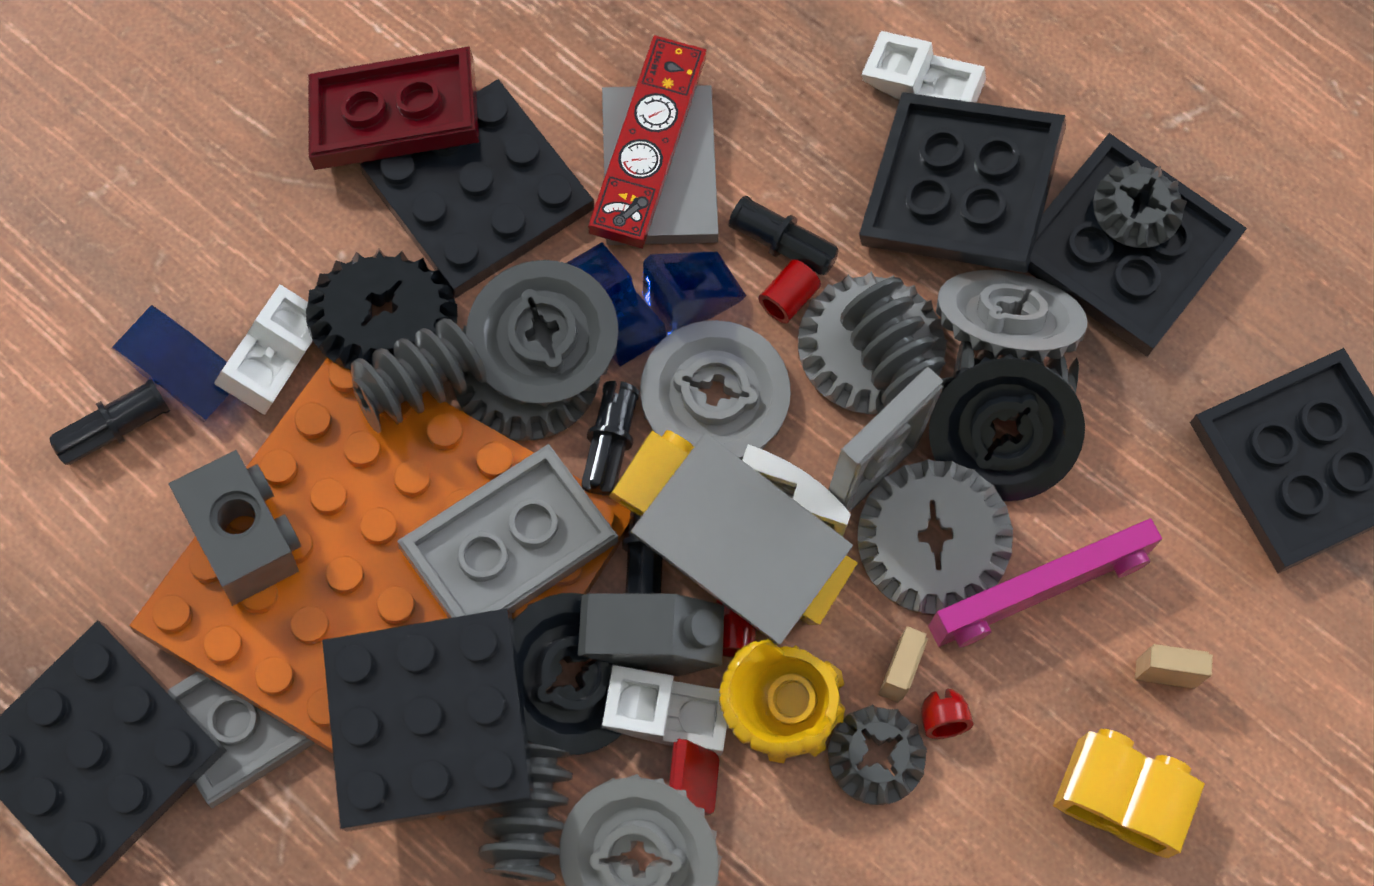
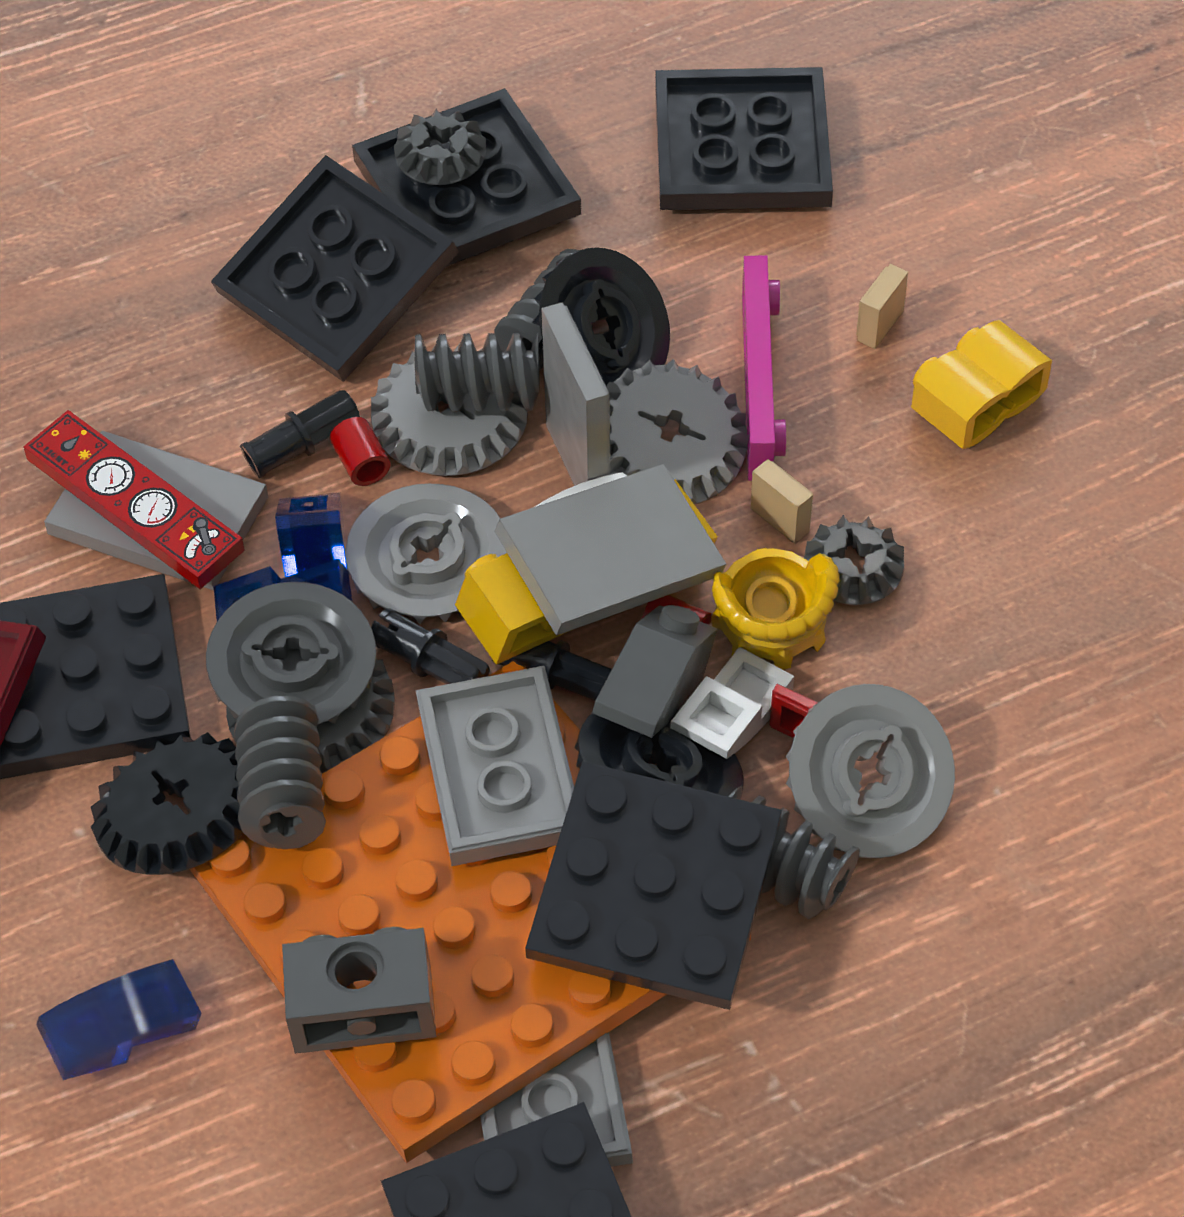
camera: 60 degrees left, 15 degrees down
(108, 423) = (149, 1110): black axle -> none
(268, 351) = (156, 923): white slope -> none
(910, 67) = (183, 273): white slope -> none
(945, 716) = (842, 491): red hinge -> none
(987, 307) = (491, 281): light grey gear -> none

